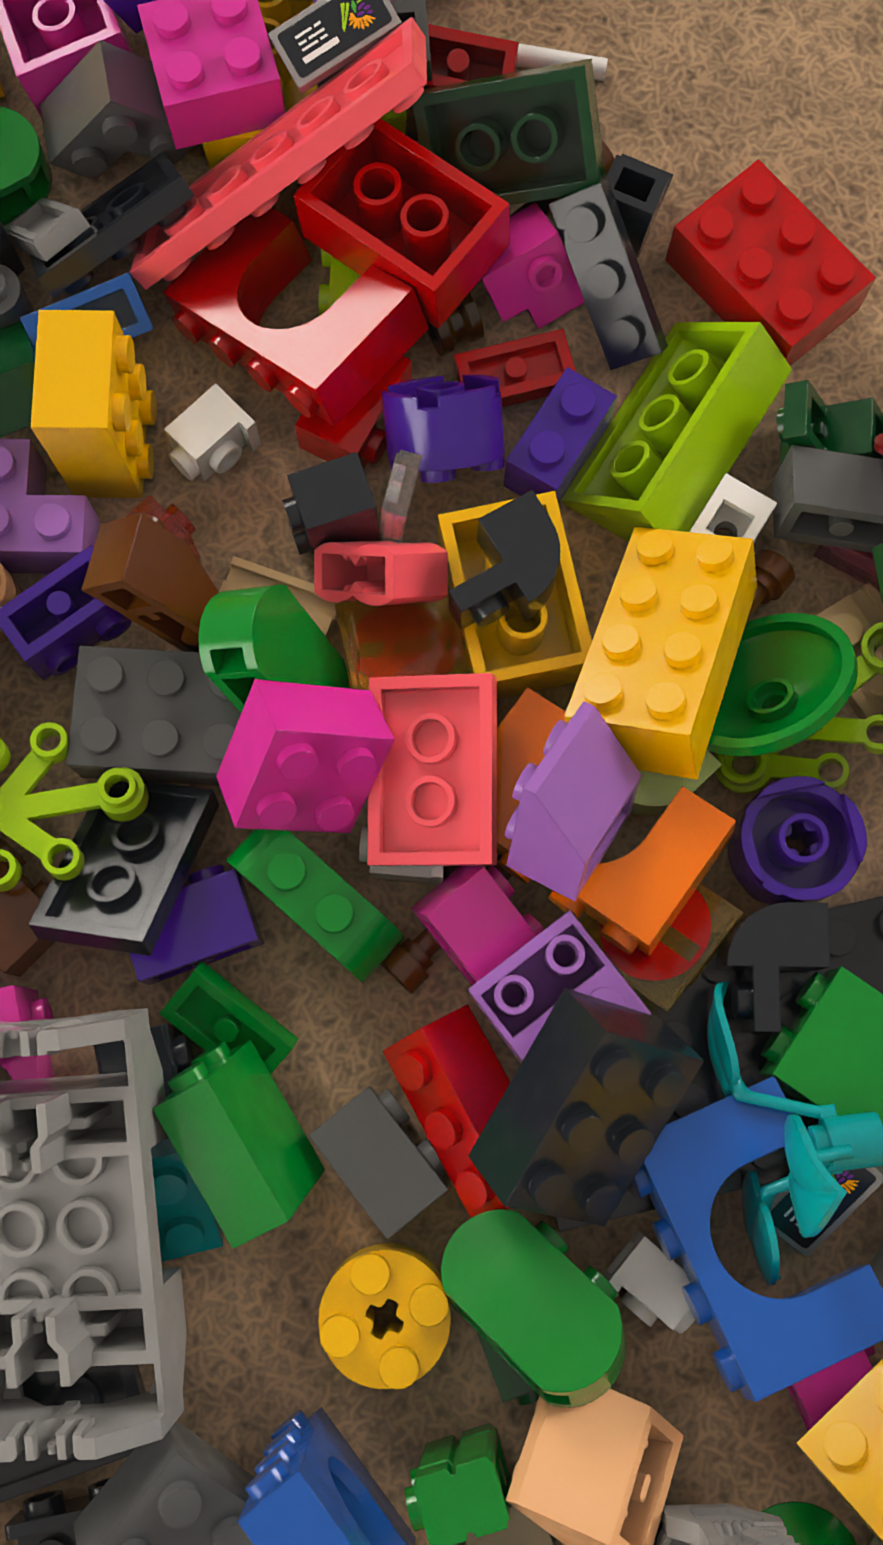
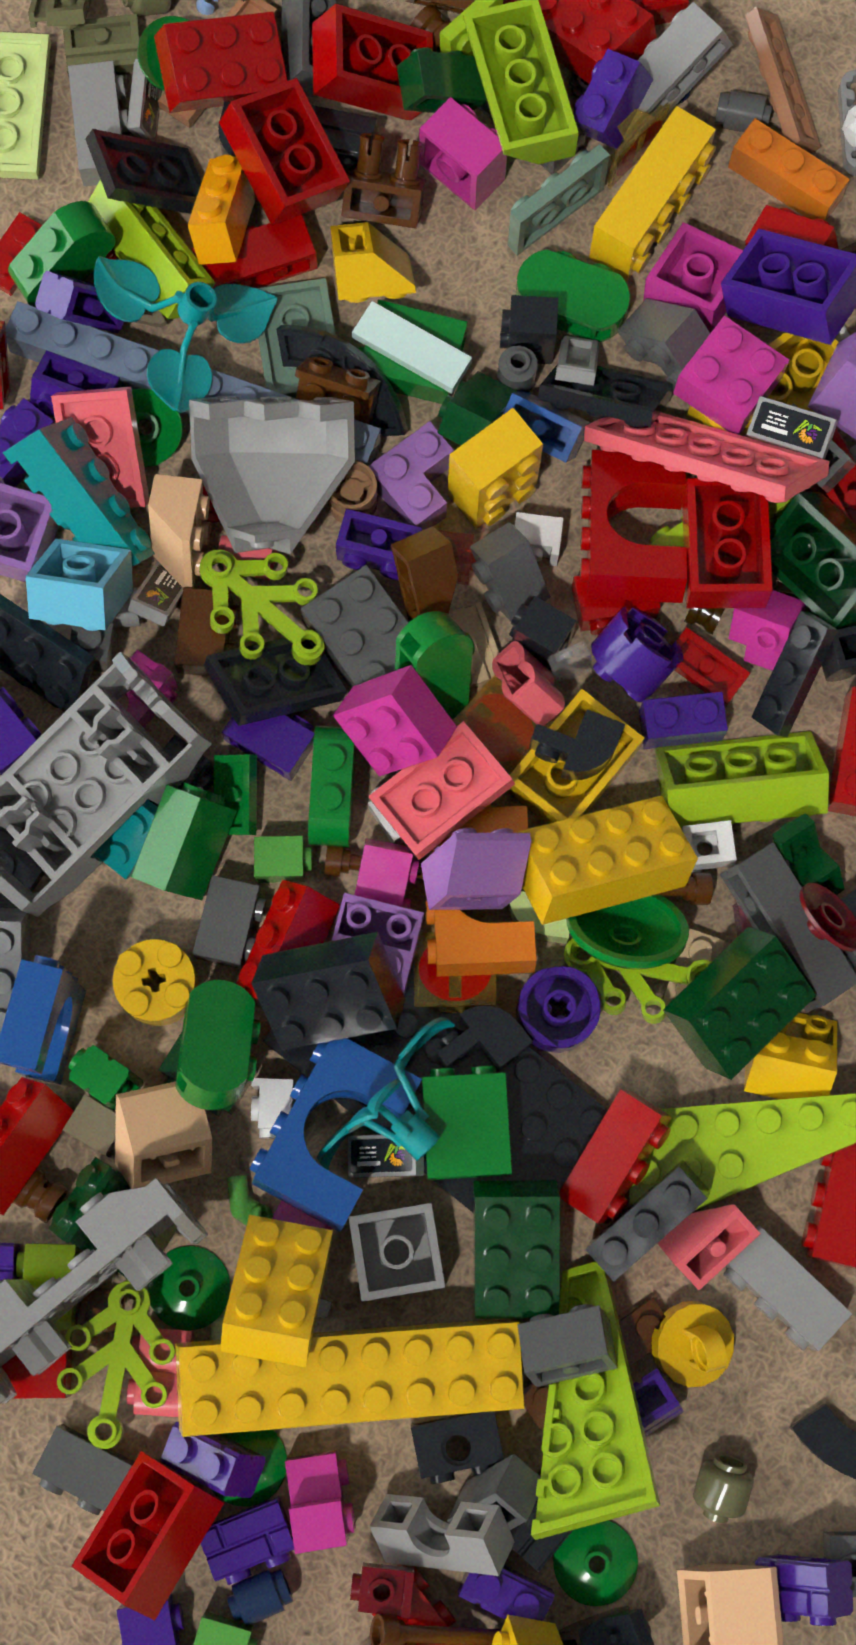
camera: 50 degrees right, 0 degrees up
(227, 489) = (508, 570): none -> dark grey brick
(353, 1031) = (281, 859): none -> bright green brick
(746, 1419) = (241, 1203): none -> bright green arm

